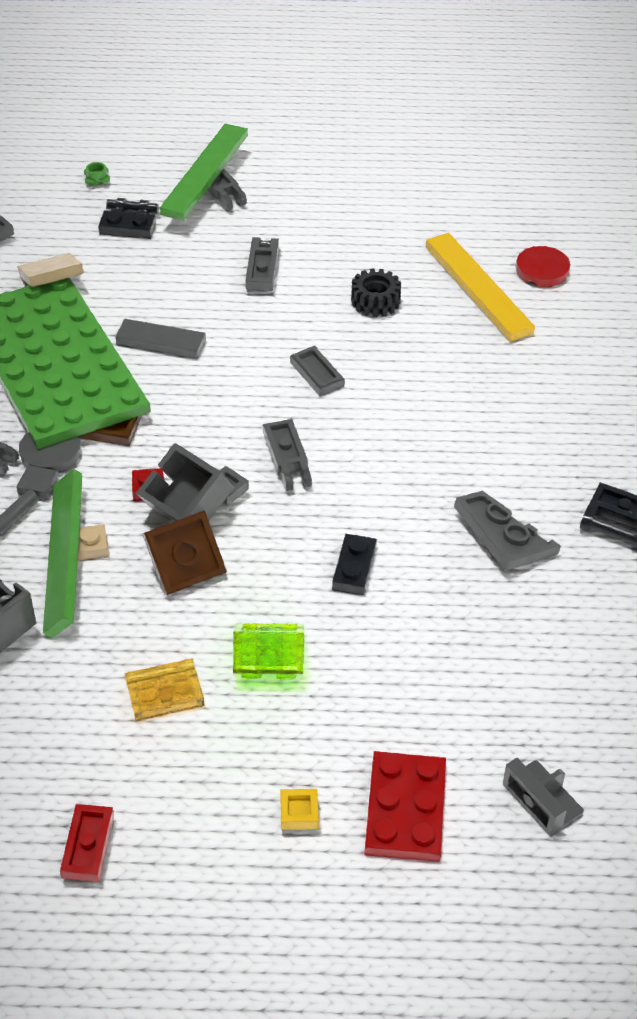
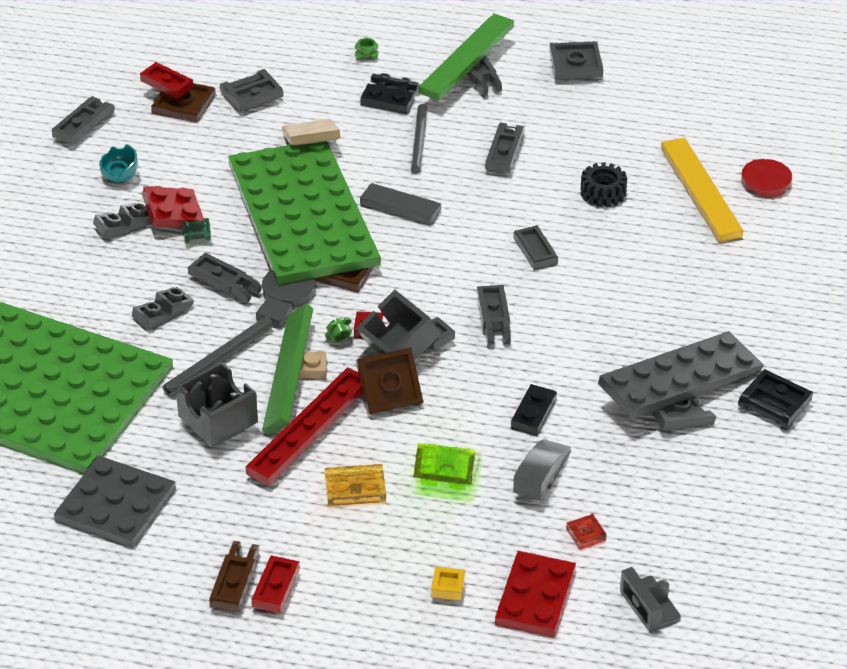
camera: 10 degrees right, 5 degrees down
(34, 842) = (234, 578): none -> reddish brown hinge
(93, 625) = (305, 428): none -> red plate
(115, 495) = (338, 329): none -> bright green plate
(168, 264) = (418, 138): none -> dark grey bar
(318, 163) = (576, 60): none -> dark grey plate
(378, 639) = (540, 469): none -> dark grey slope
(447, 712) = (586, 531): none -> clear red tile
(509, 502) = (680, 374): none -> dark grey plate

